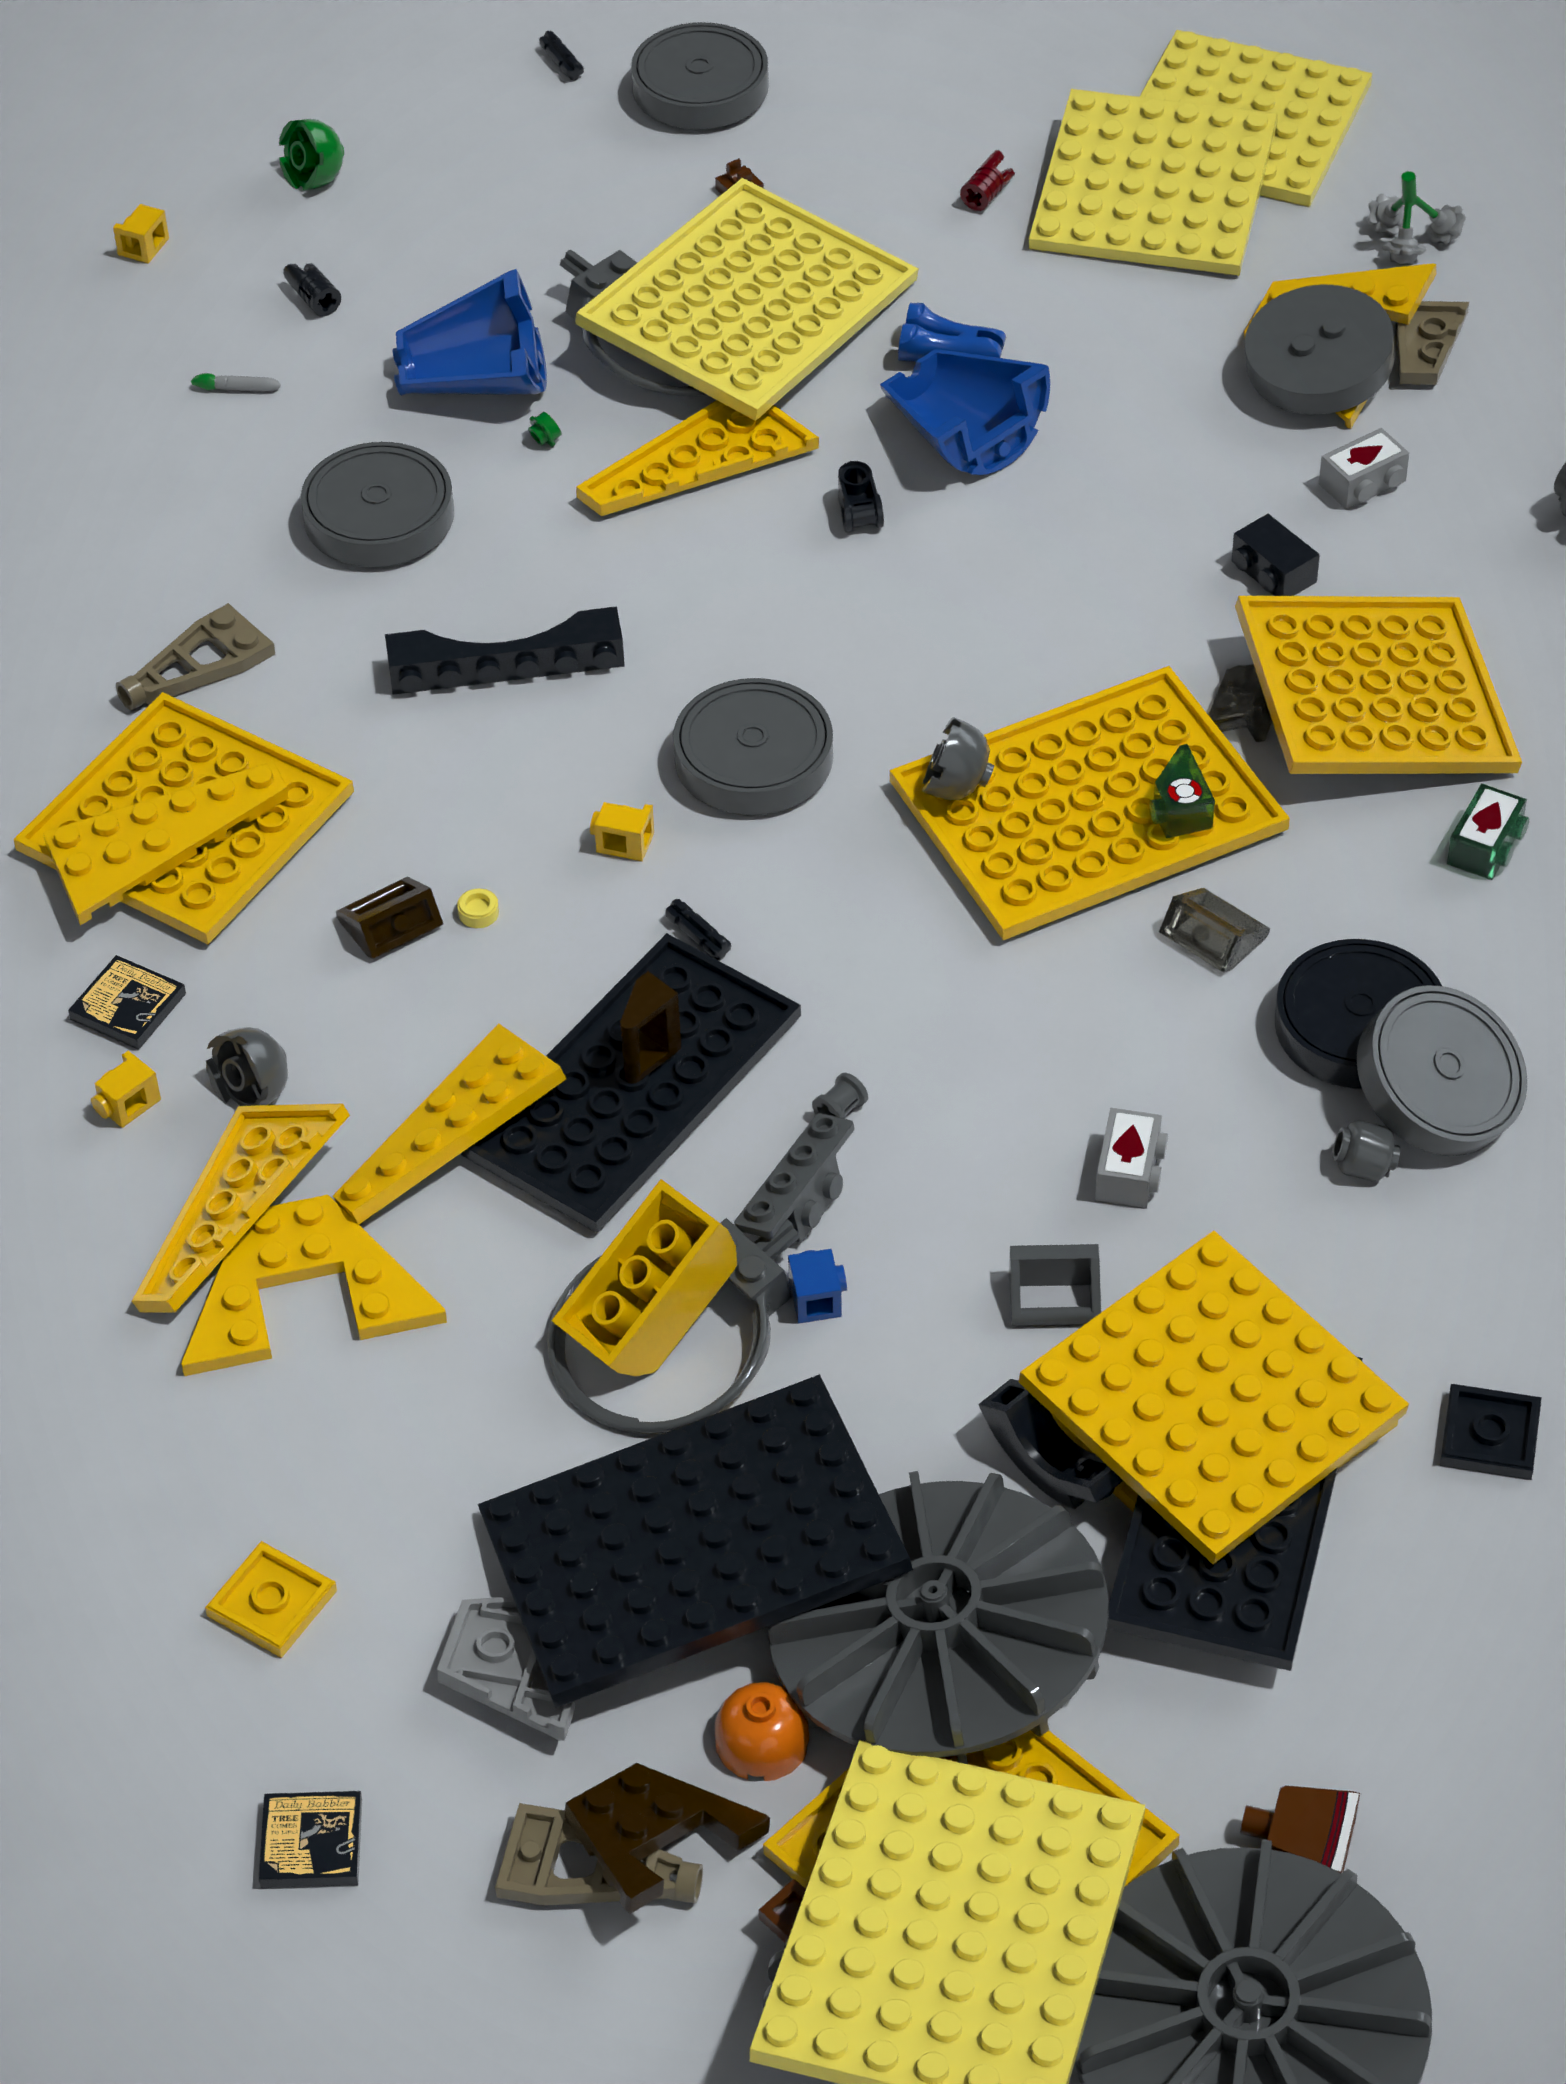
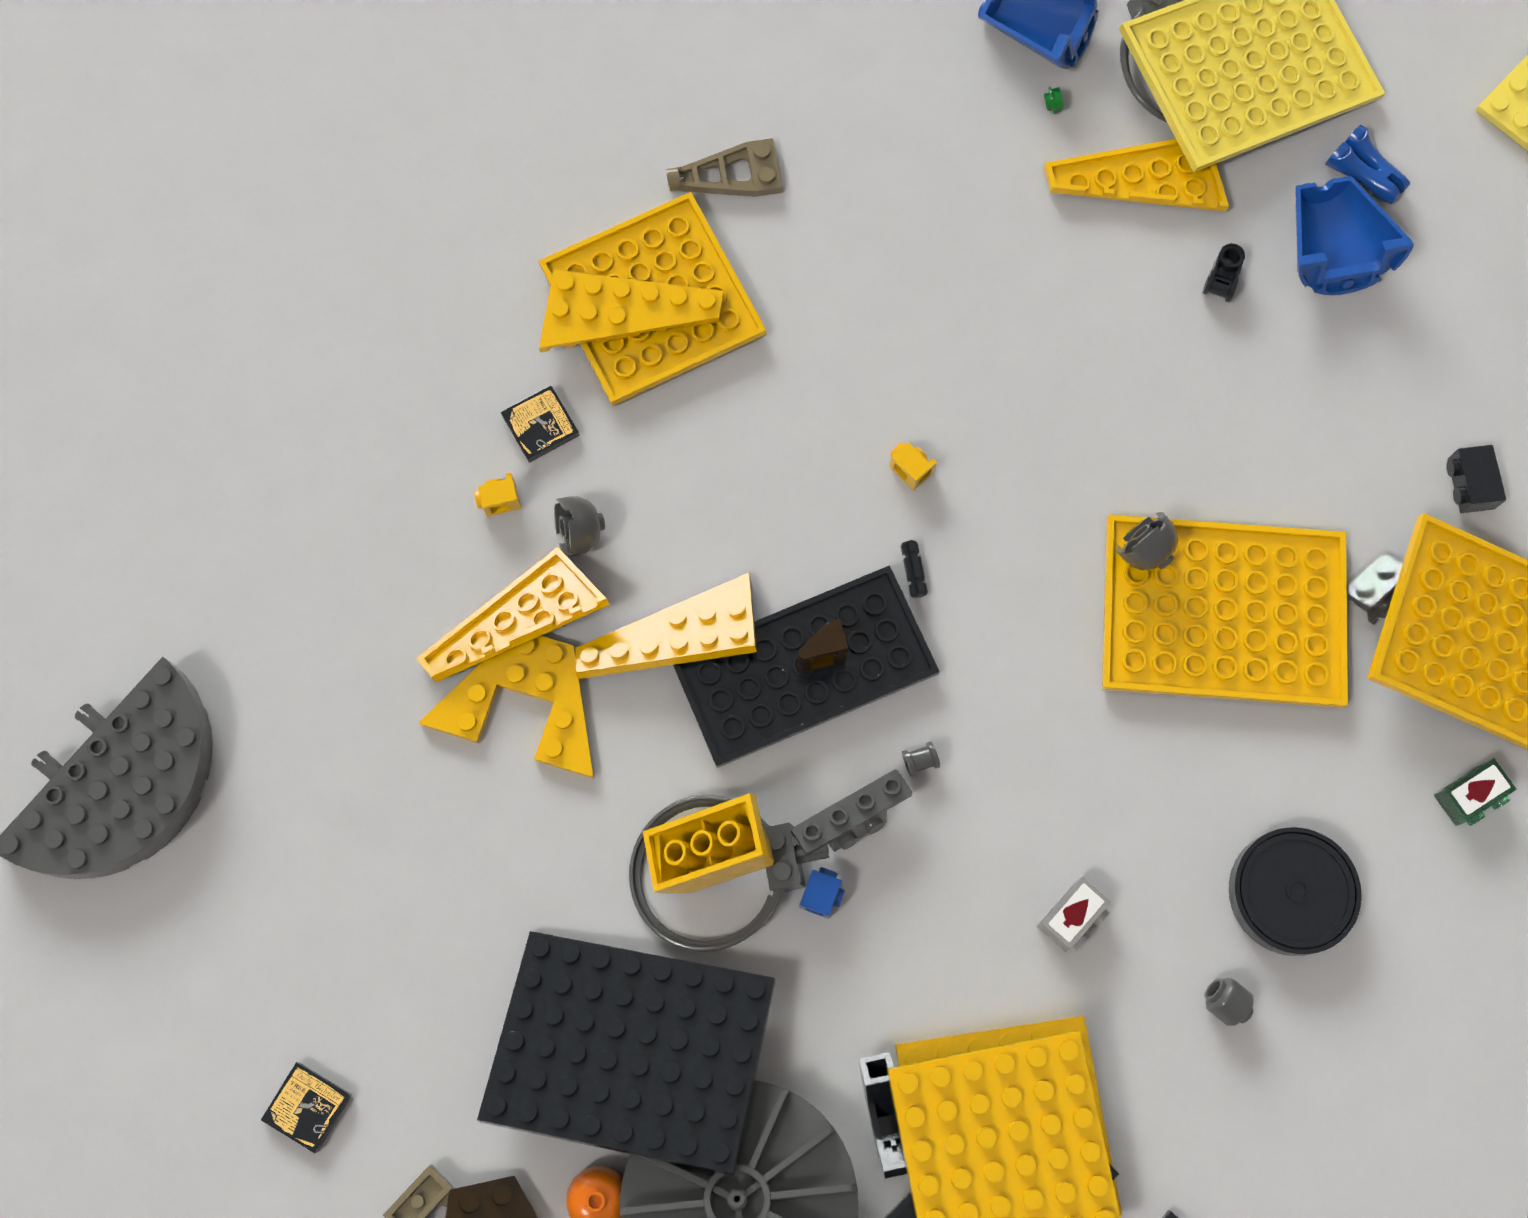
camera: 30 degrees right, 25 degrees up
(271, 1599) = (378, 922): yellow tile -> none
(377, 504) = (910, 107): dark grey brick -> none
(391, 916) = (731, 457): dark brown tile -> none
(433, 662) = (974, 296): black arch -> none
(478, 908) = (789, 471): light yellow tile -> none
(495, 1665) = (468, 1056): light grey wing -> none
(753, 746) = (1033, 444): dark grey brick -> none
(985, 183) = (1480, 39): dark red hinge -> none
(1054, 1267) = (976, 969): dark grey tile -> none
(1182, 797) = (1283, 654): clear green slope -> none
(1208, 934) = (1233, 765): clear smoke tile -> none
(1442, 1070) = (1315, 980): brick -> none

